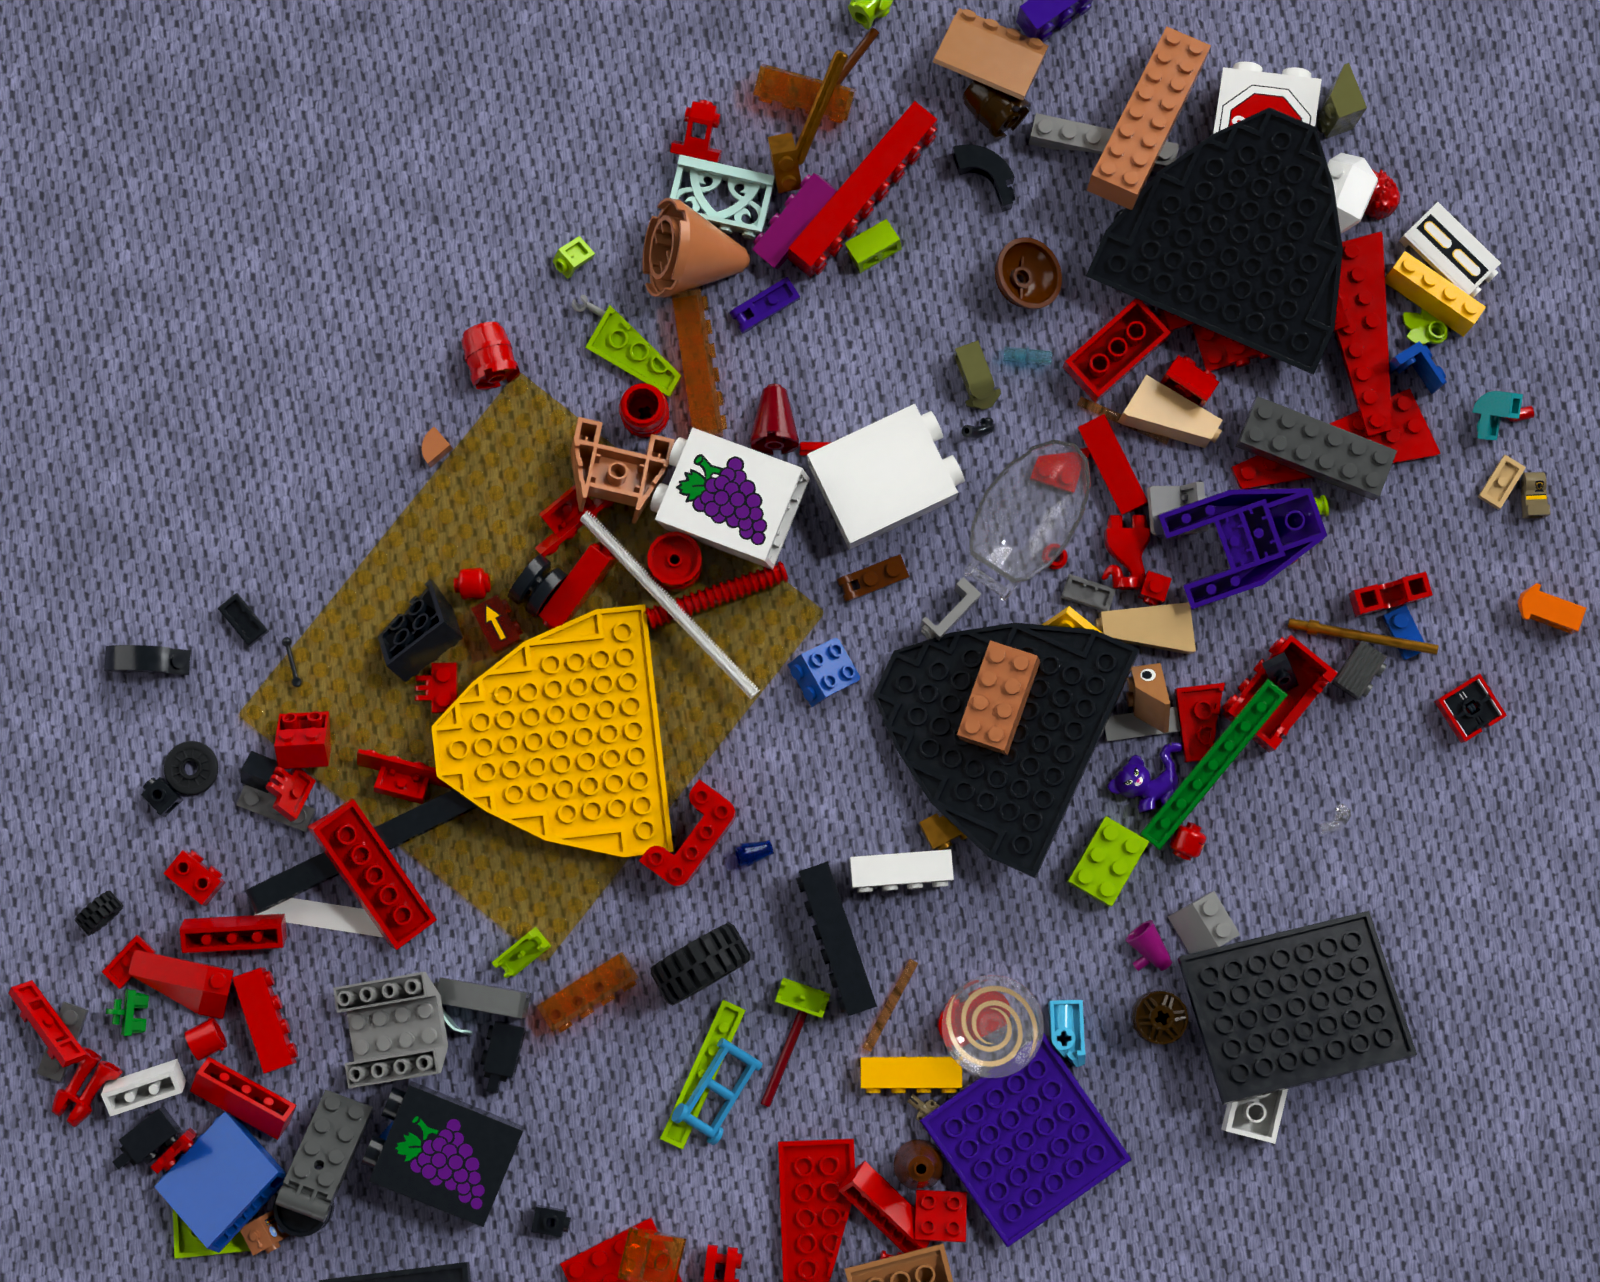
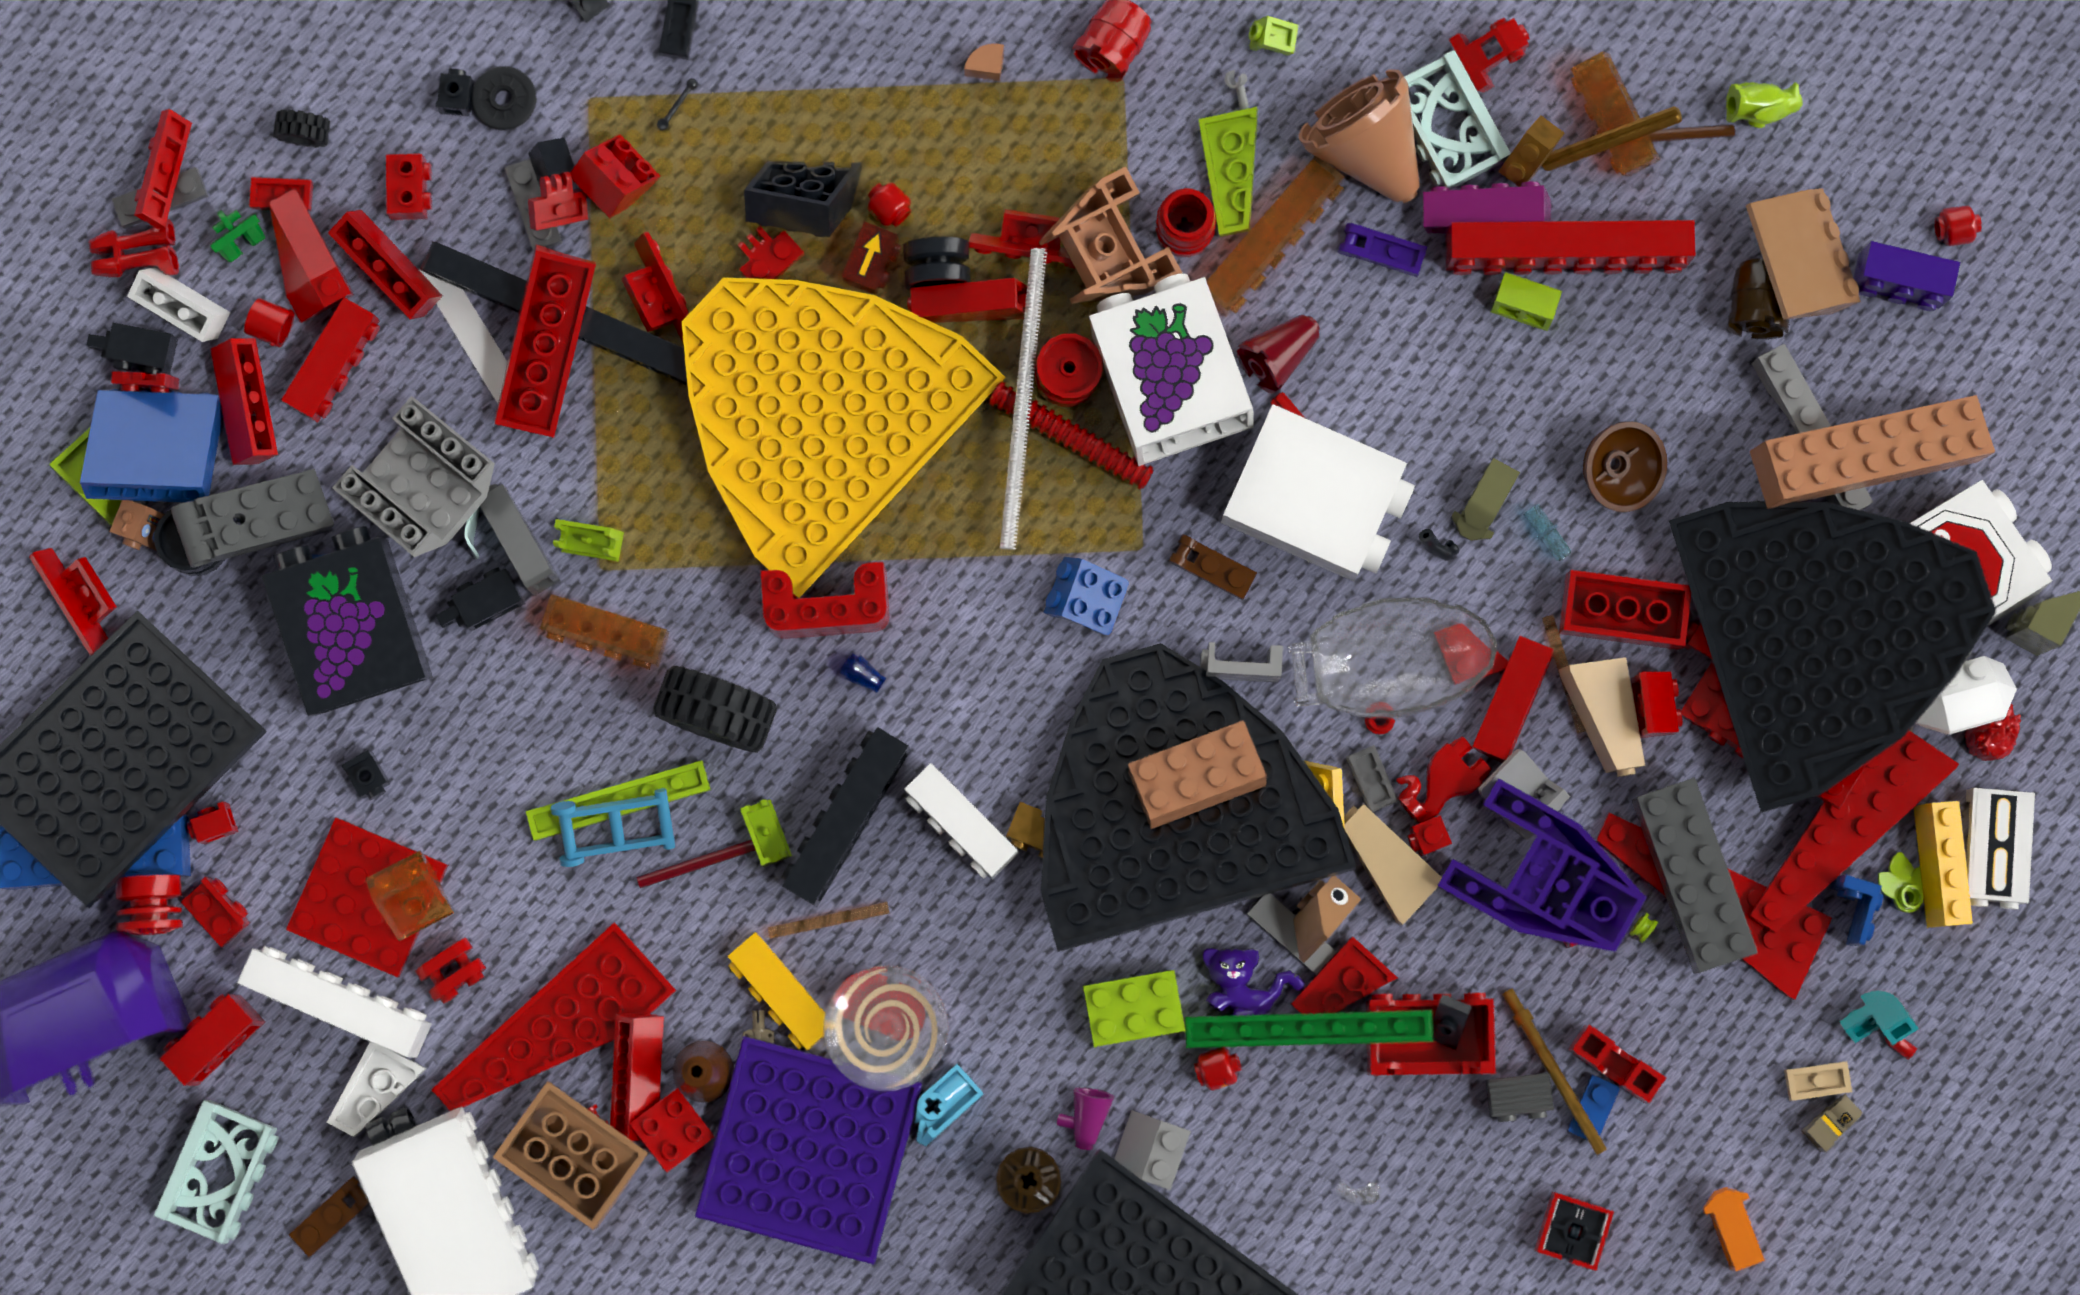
camera: 50 degrees right, 0 degrees up
(989, 164) = (1698, 341): black arch -> none

